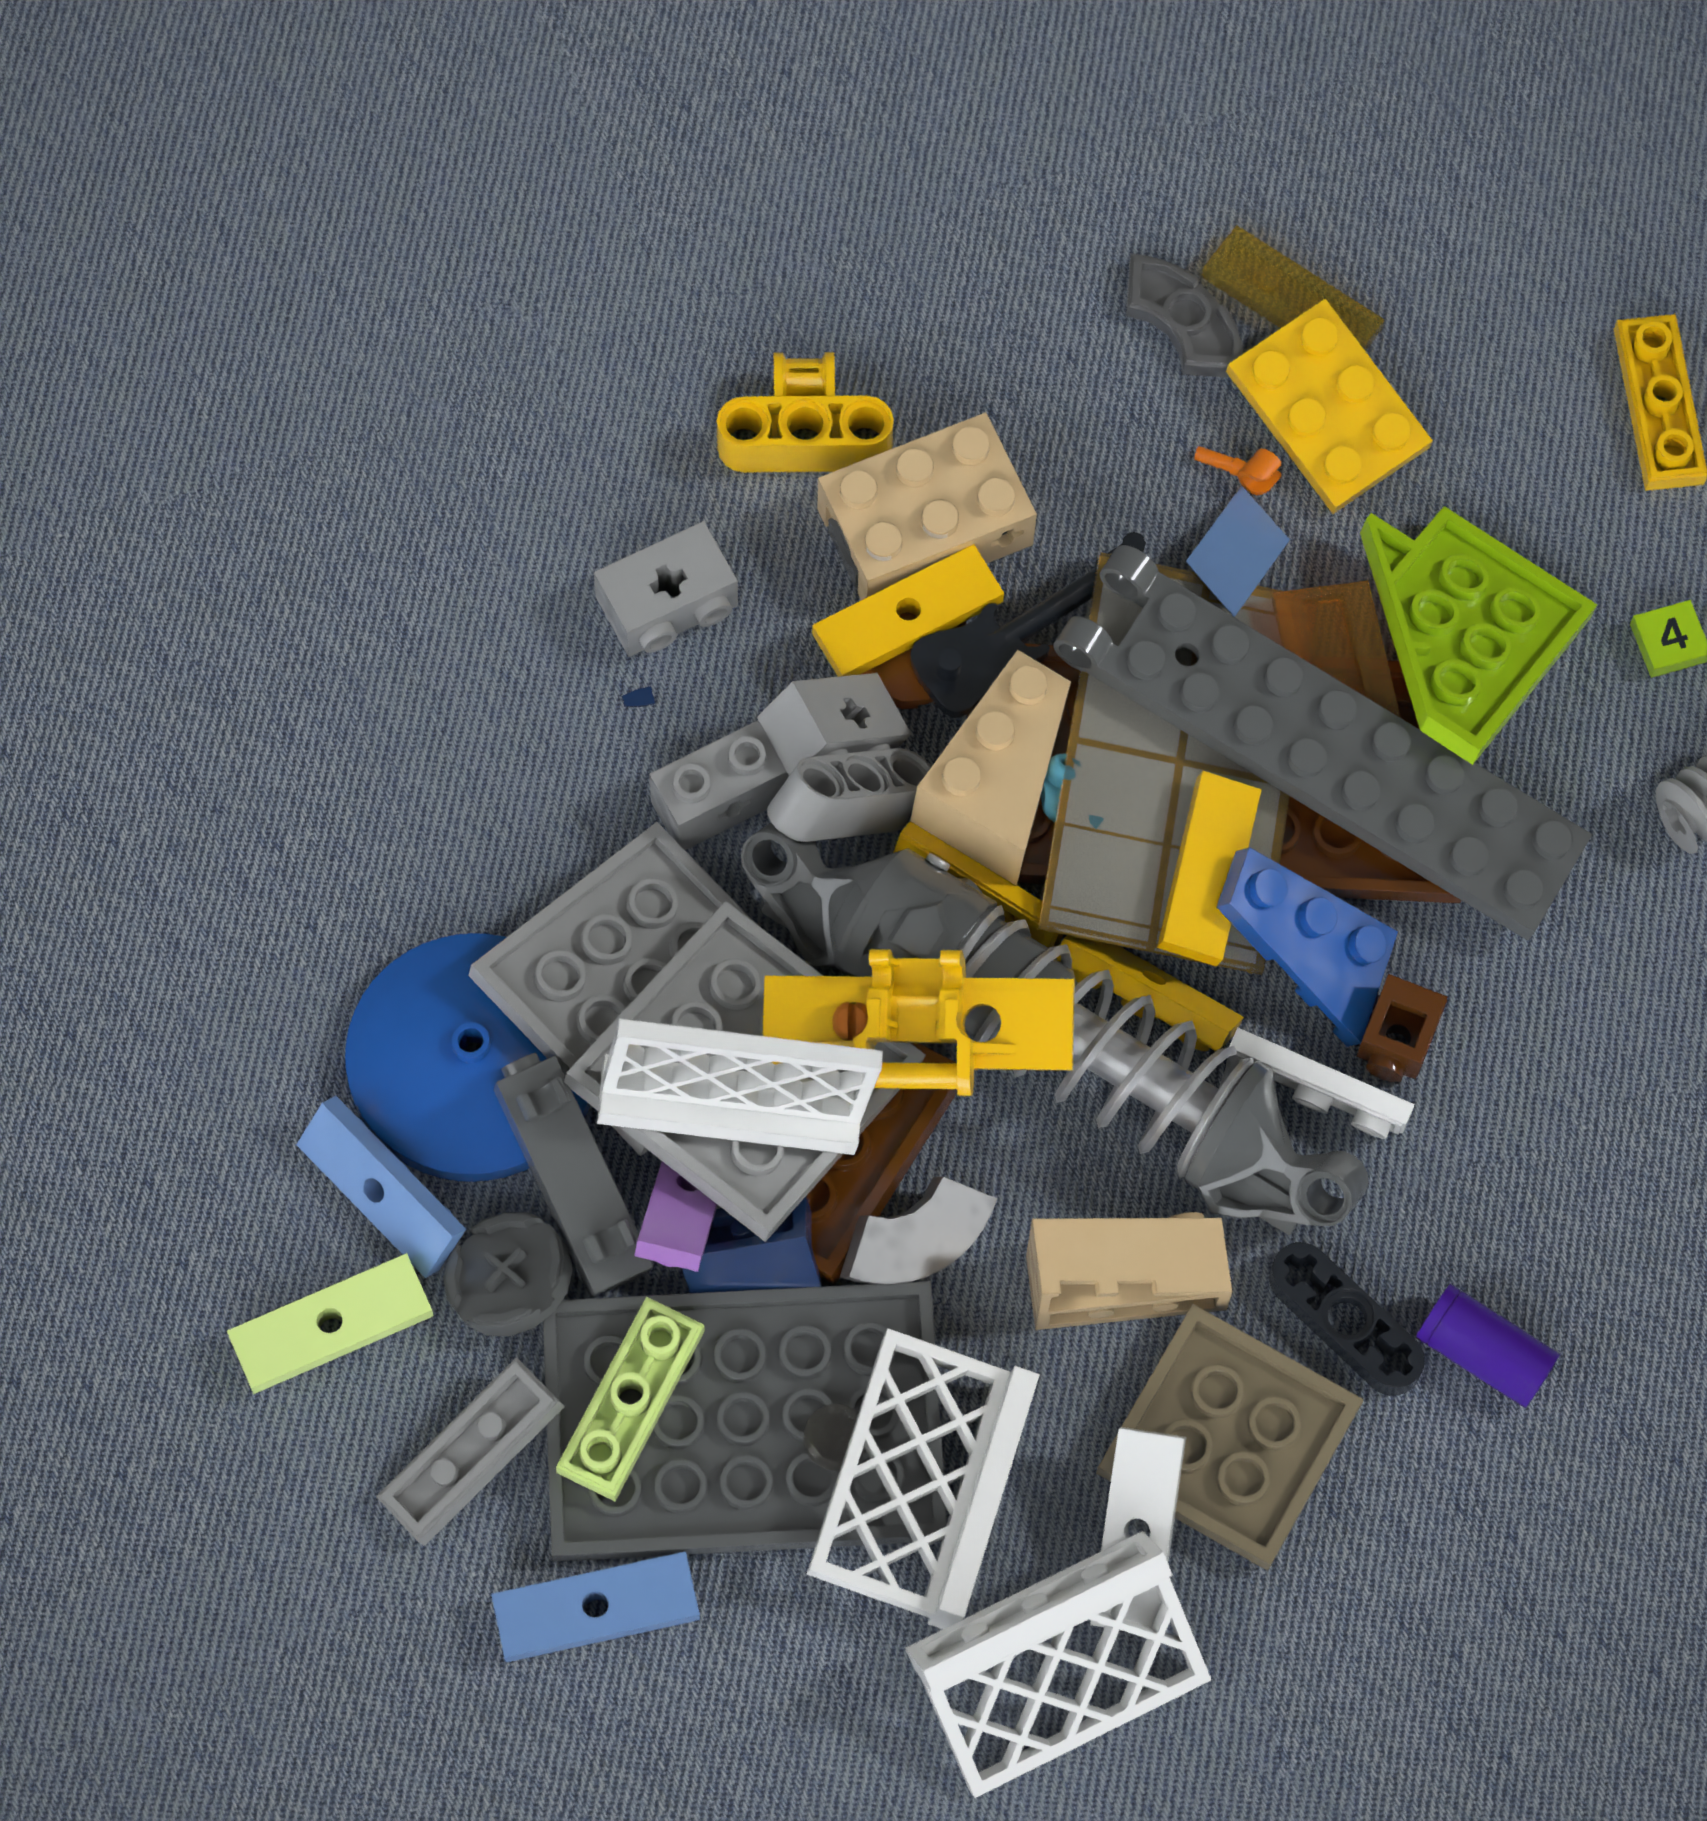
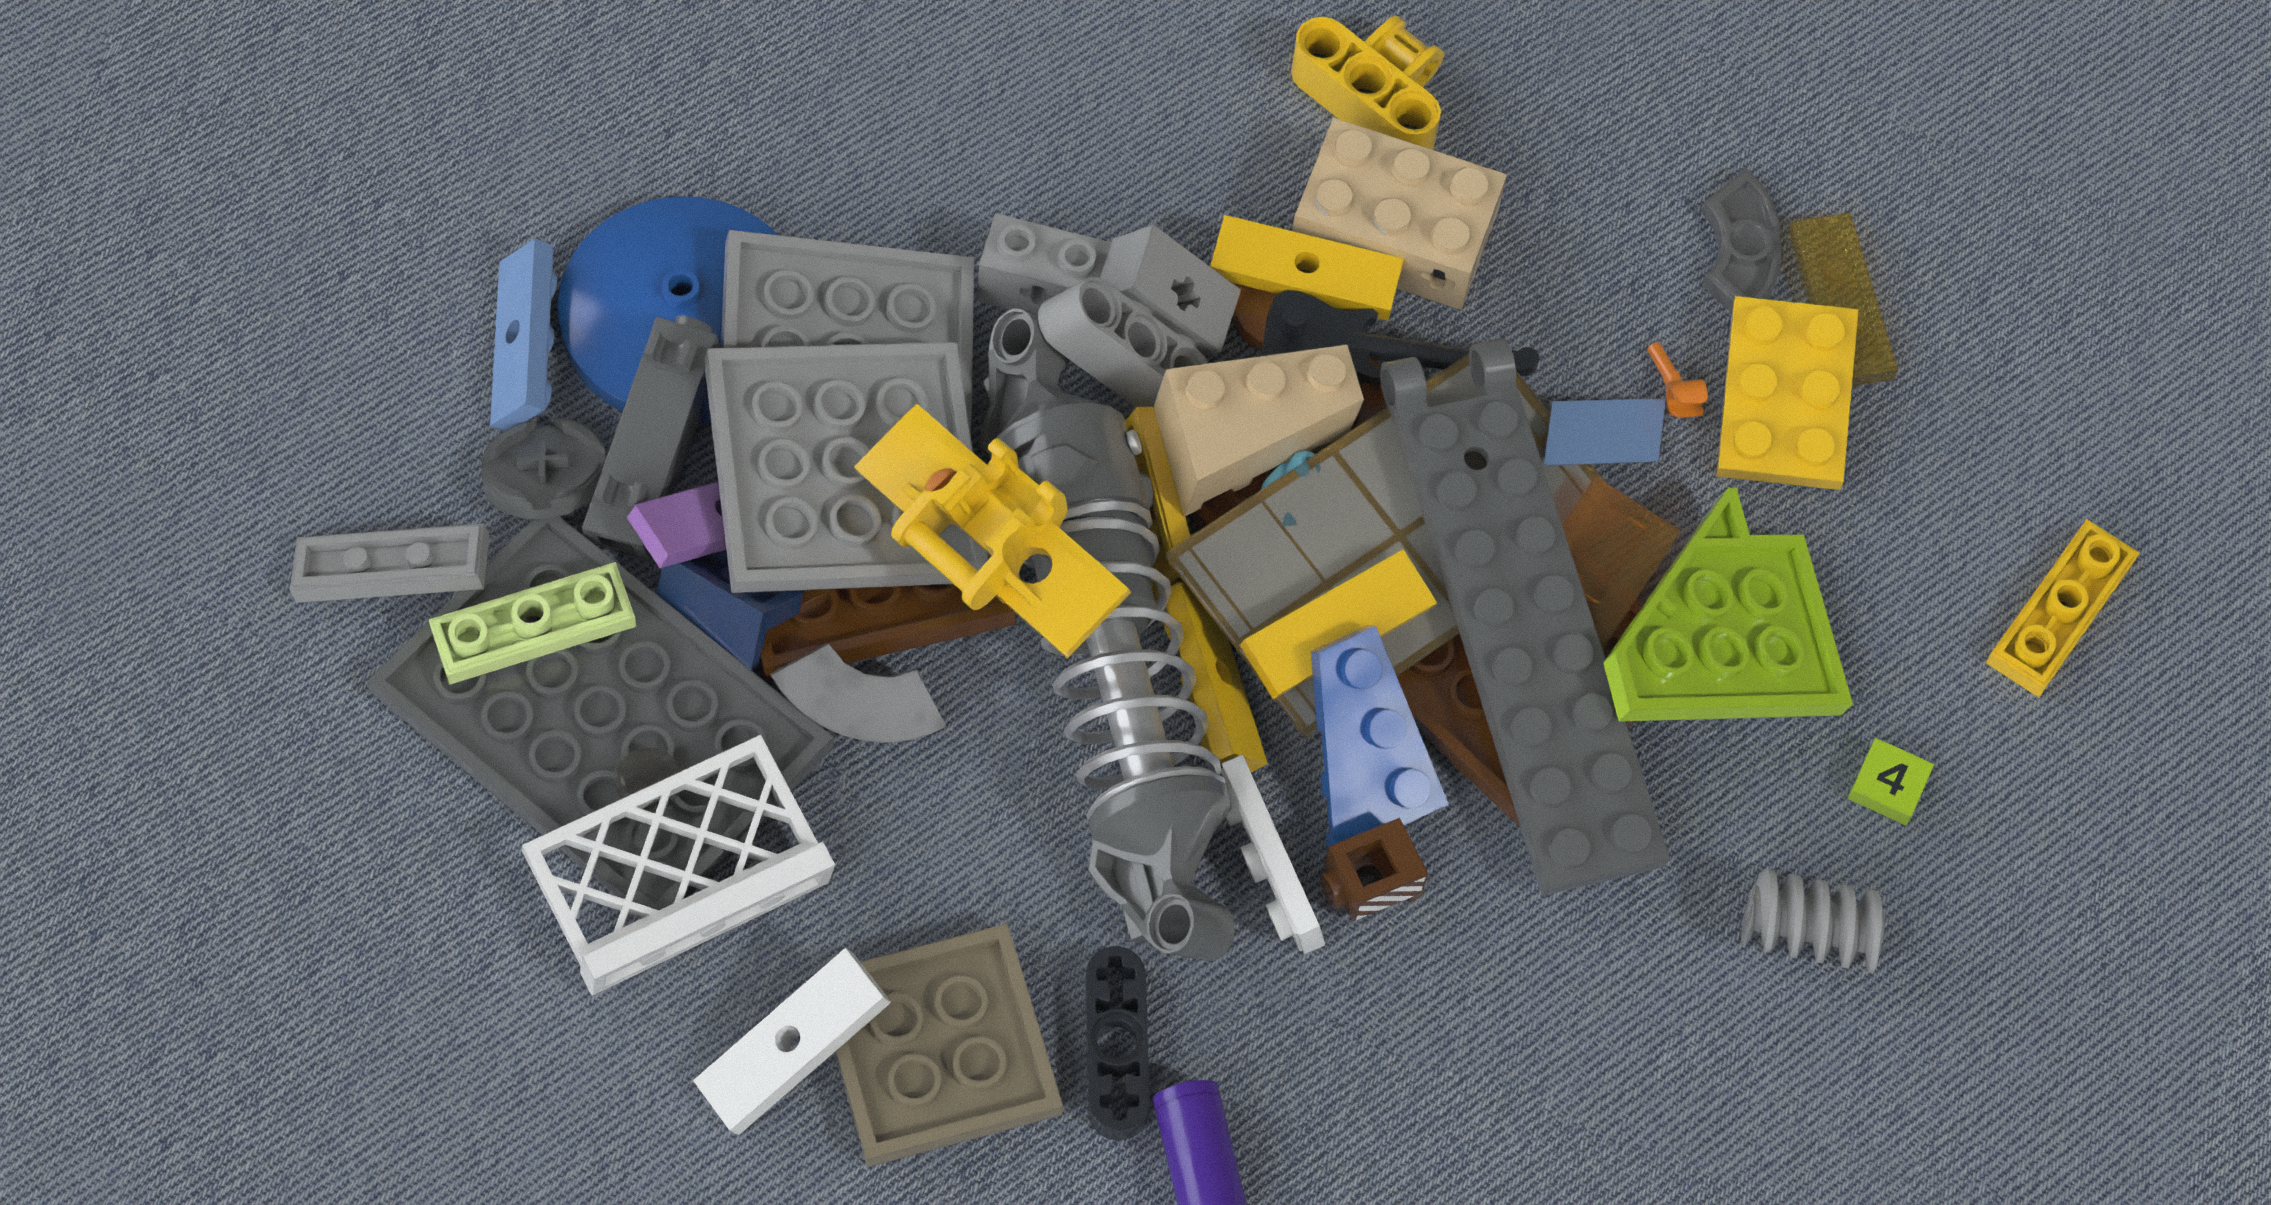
camera: 40 degrees right, 5 degrees down
(367, 1305) = (360, 383): yellowish green tile -> none
(638, 1600) = (333, 726): medium blue tile -> none
(639, 698) = (1060, 174): dark blue piece -> none
(684, 565) = (1151, 112): light grey brick -> none
(720, 1101) = (795, 448): white fence -> none
(1046, 1612) = (643, 1025): white fence -> none
(1125, 1268) = (980, 850): tan wedge -> none

